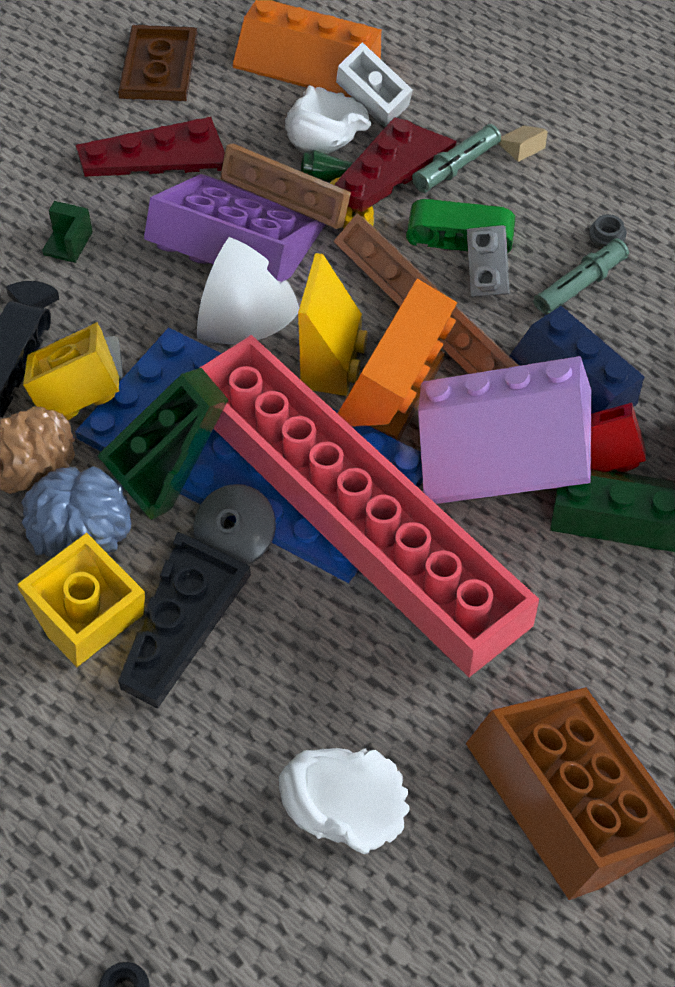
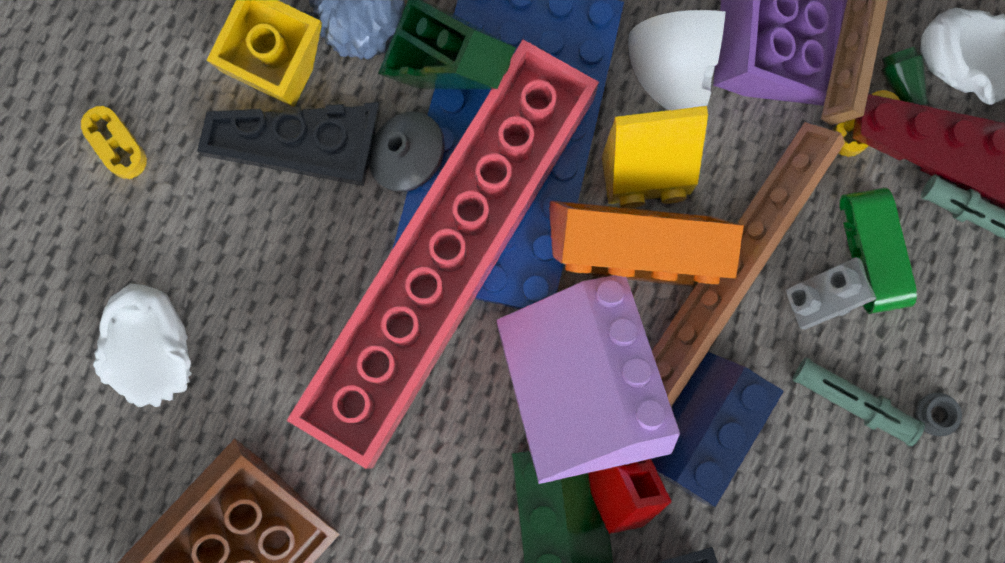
camera: 70 degrees right, 25 degrees up
(107, 786) = (106, 147): none -> yellow beam

